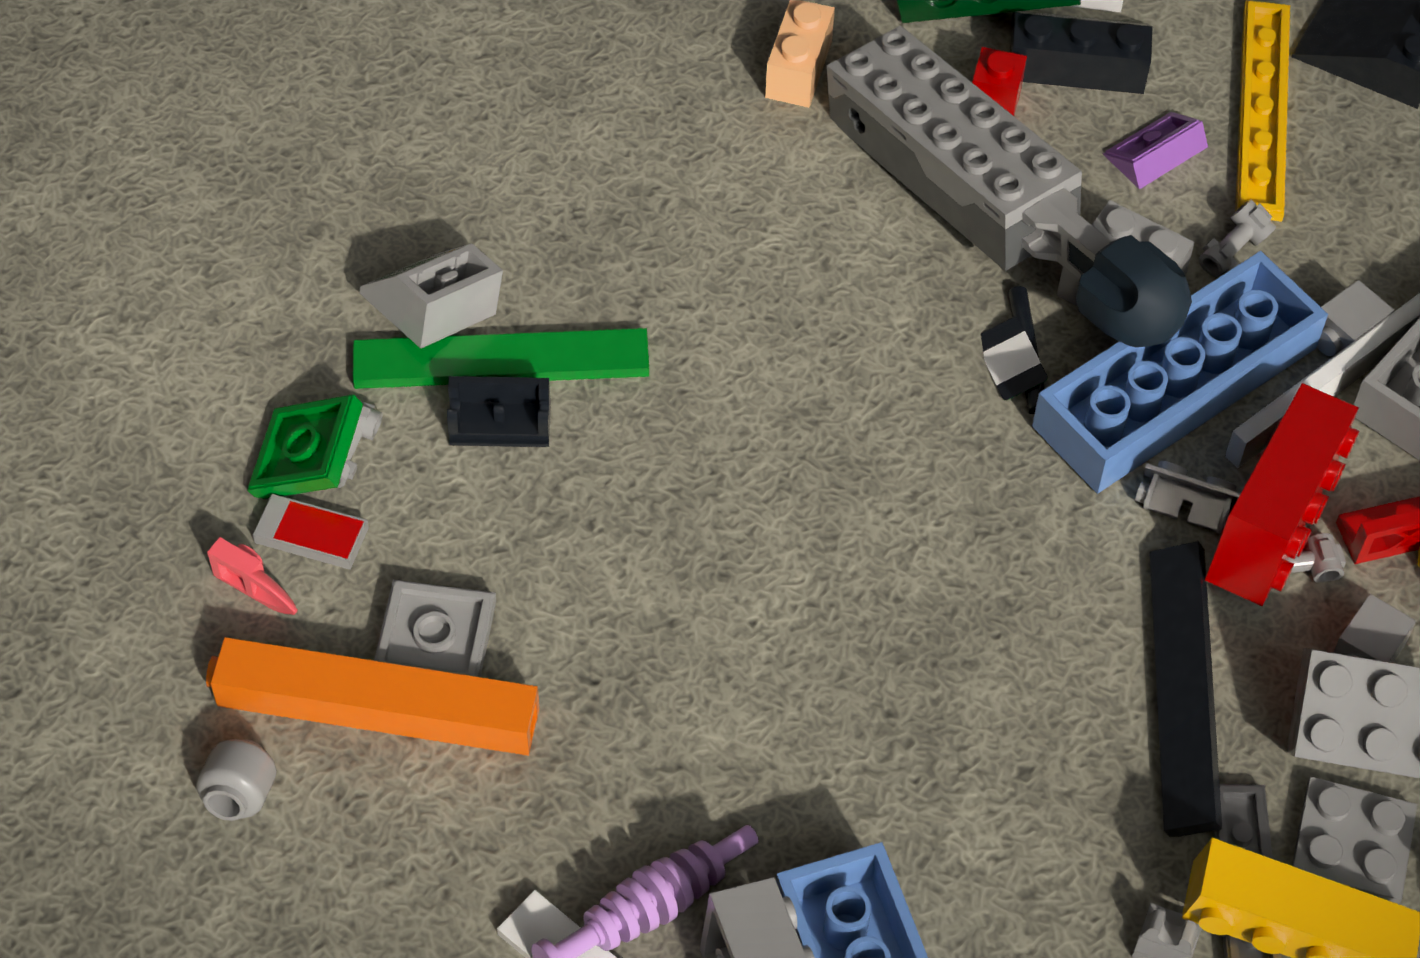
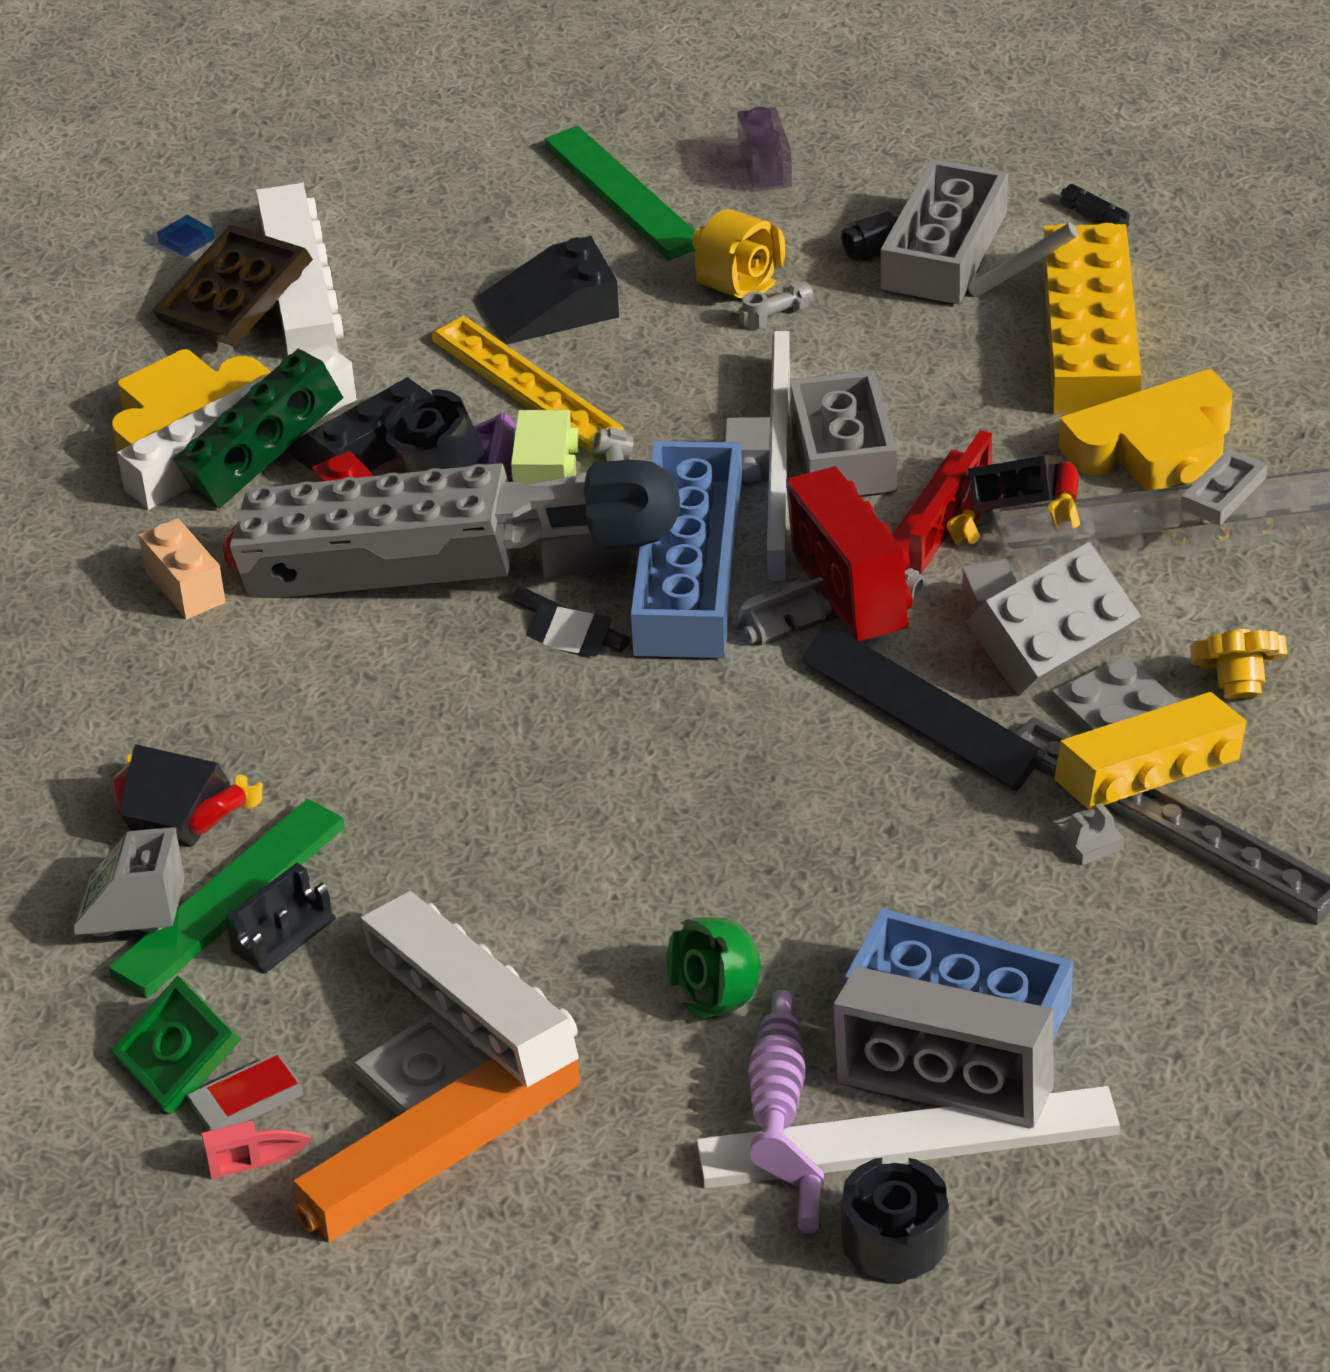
camera: 45 degrees left, 15 degrees down
(236, 779) = (415, 1255): light grey head -> none
(523, 604) = (471, 988): none -> white brick
(553, 245) = (179, 792): none -> black torso
(725, 761) = (716, 957): none -> green cylinder
(1107, 99) = (432, 433): none -> black brick
(1187, 182) = (544, 446): none -> yellowish green piece

